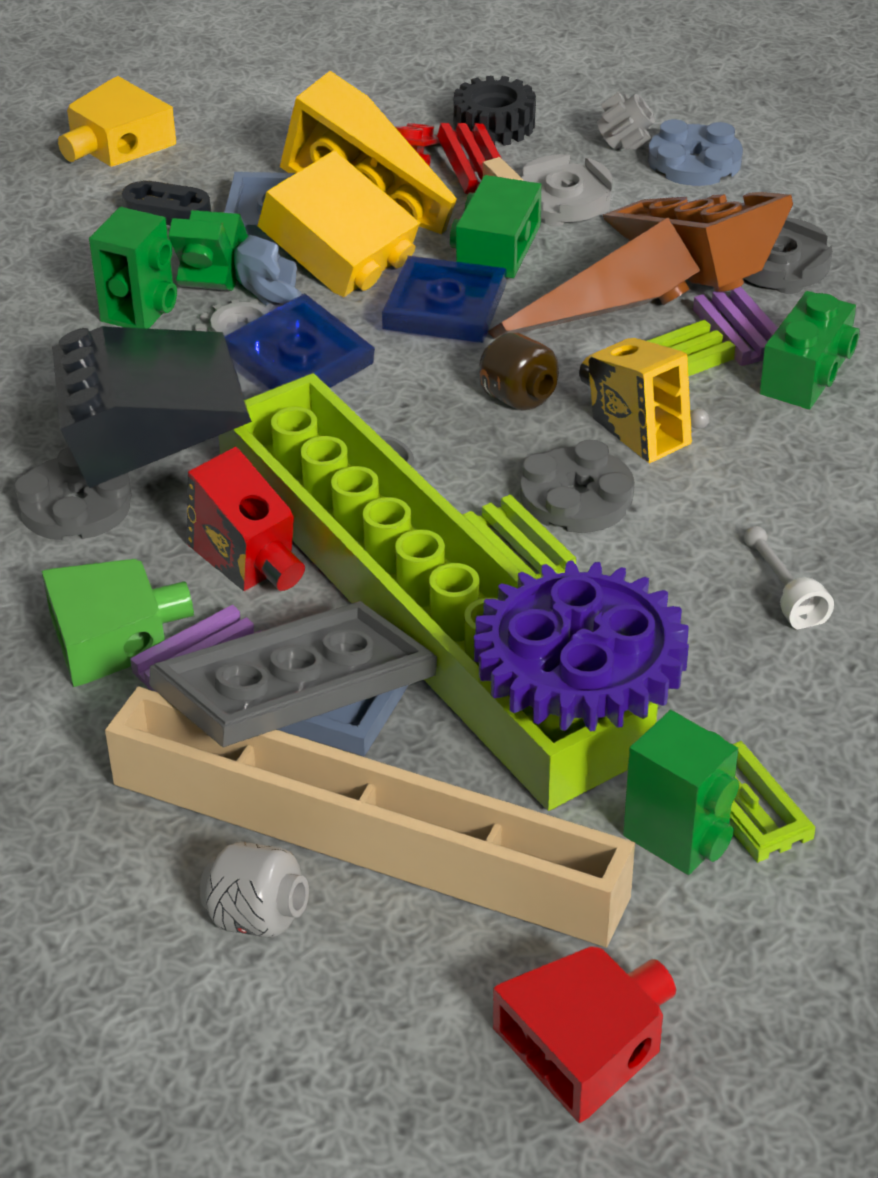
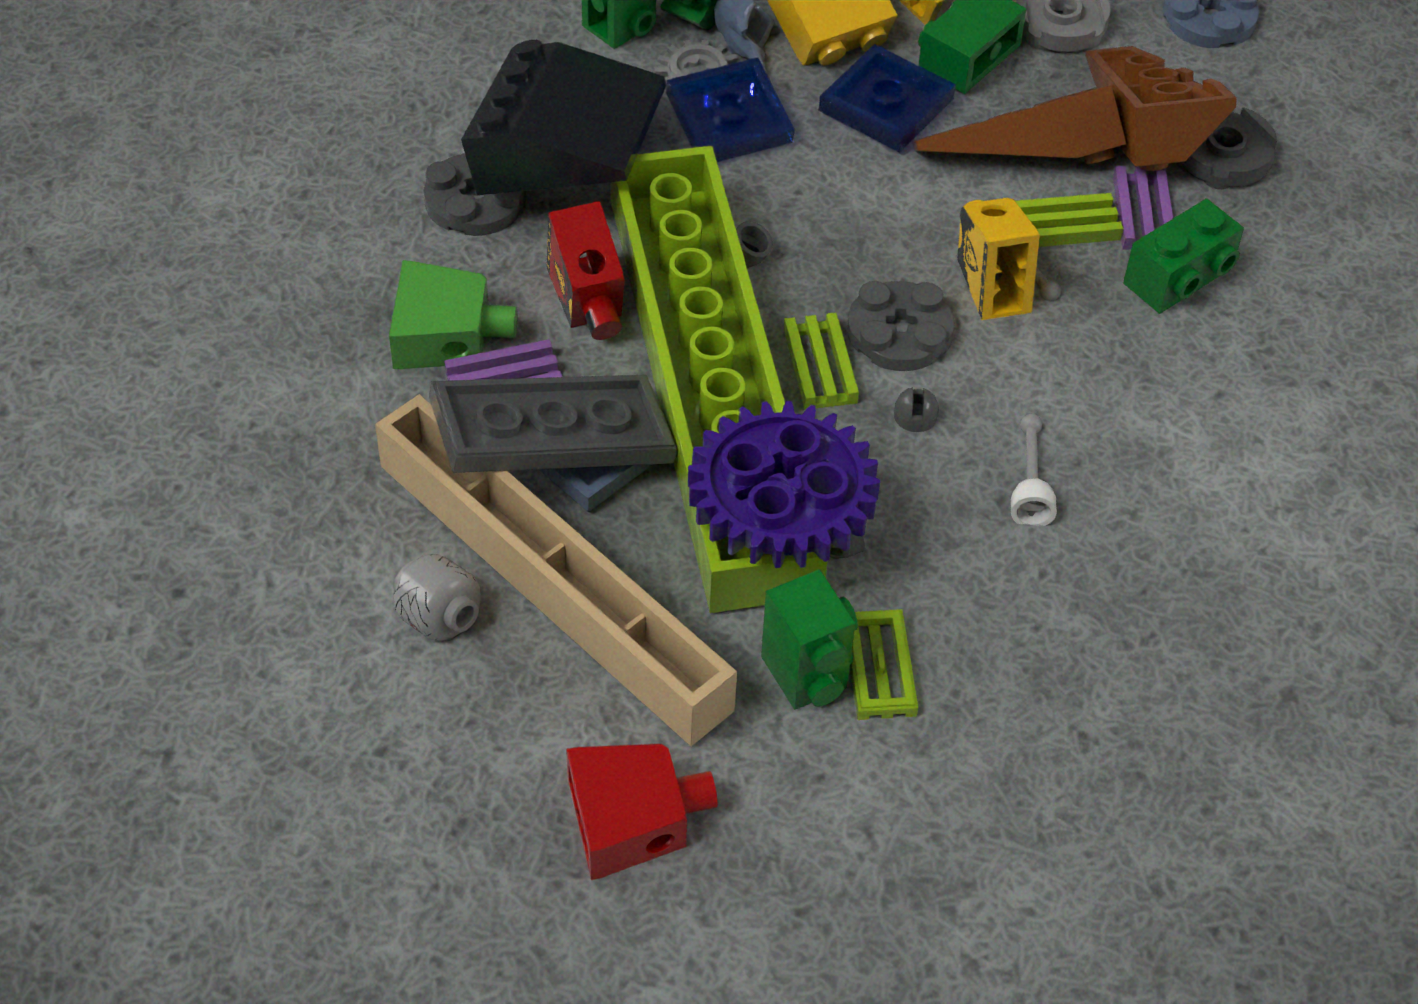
camera: 20 degrees right, 10 degrees up
(516, 369) = (905, 192): dark brown head -> none
(629, 556) = (904, 407): none -> dark grey hinge

